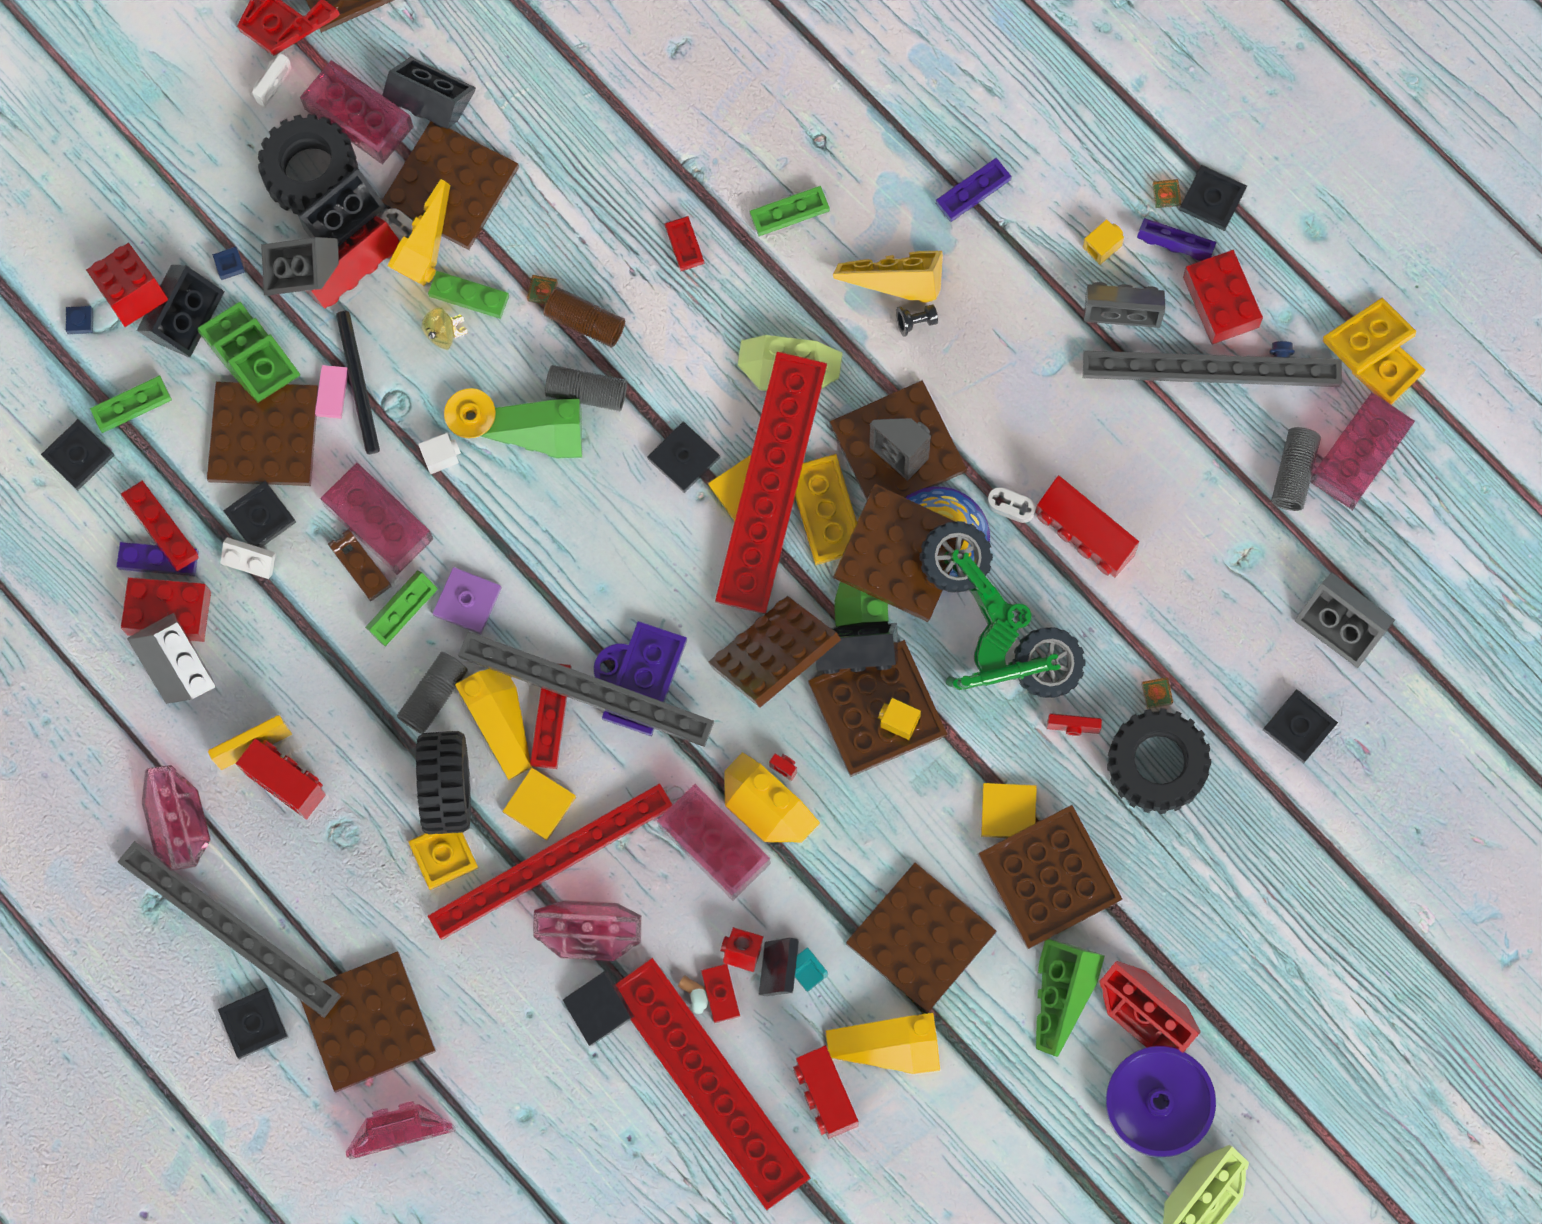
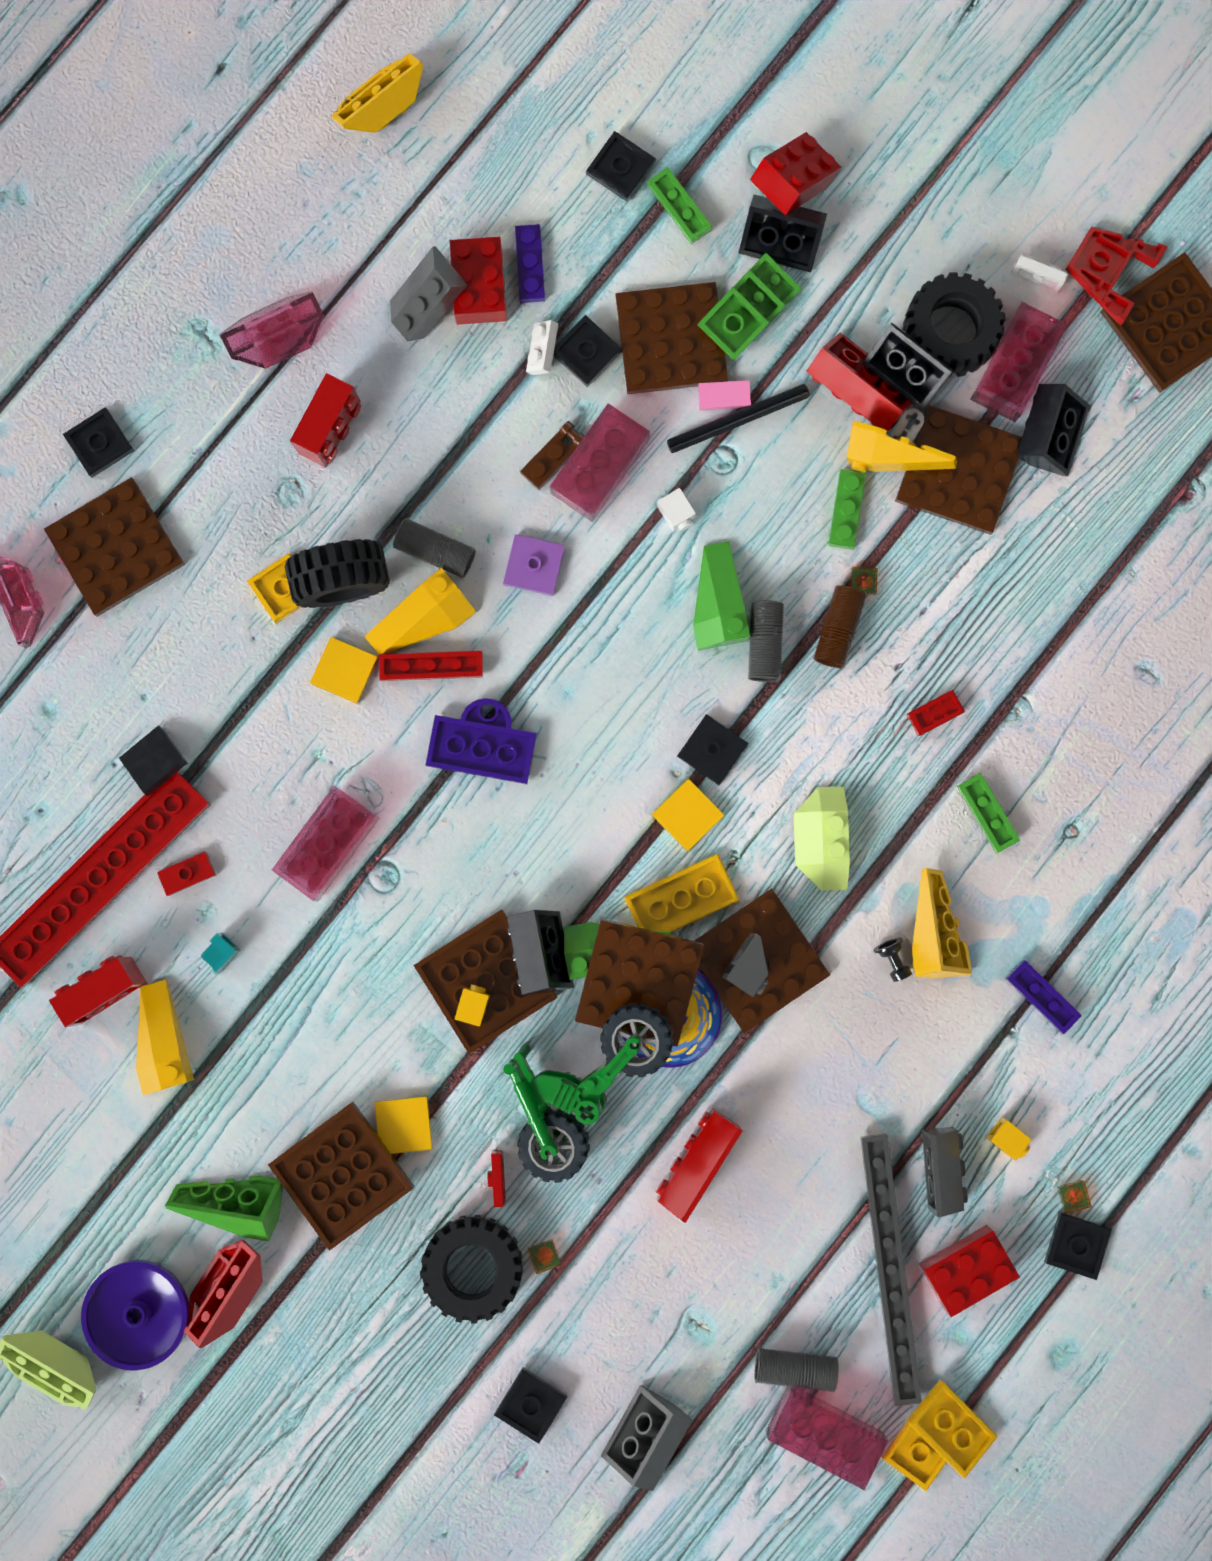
camera: 80 degrees right, 10 degrees up
(79, 320) = (758, 139): dark blue plate -> none
(159, 525) = (560, 257): red plate -> none
(228, 263) = (839, 269): dark blue plate -> none
(229, 929) = (176, 404): dark grey plate -> none
(232, 749) = (355, 380): yellow tile -> none
(298, 264) = (843, 335): dark grey slope -> none
(401, 608) = (515, 503): bright green plate -> none
(441, 328) = (804, 489): clear yellow piece -> none
(467, 402) = (722, 520): yellow dish -> none
(550, 862) = (289, 691): red plate -> none
(586, 689) = (457, 695): dark grey plate -> none
(587, 929) = (226, 736): clear pink wedge -> none
(697, 994) = (181, 852): arm -> none
(746, 958) = (233, 898): red brick -> none
(765, 803) = (375, 885): yellow wedge -> none
(771, 483) = (696, 841): red plate -> none
(774, 651) = (518, 872): reddish brown plate -> none
(778, 967) = (212, 926): black tile -> none
(783, 765) = (413, 899): red plate -> none
(921, 937) = (267, 1058): reddish brown plate -> none
(1013, 499) = (720, 1085): white beam -> none
(1176, 240) = (1023, 1214): dark purple plate -> none
(1282, 349) = (922, 1339): dark blue plate -> none

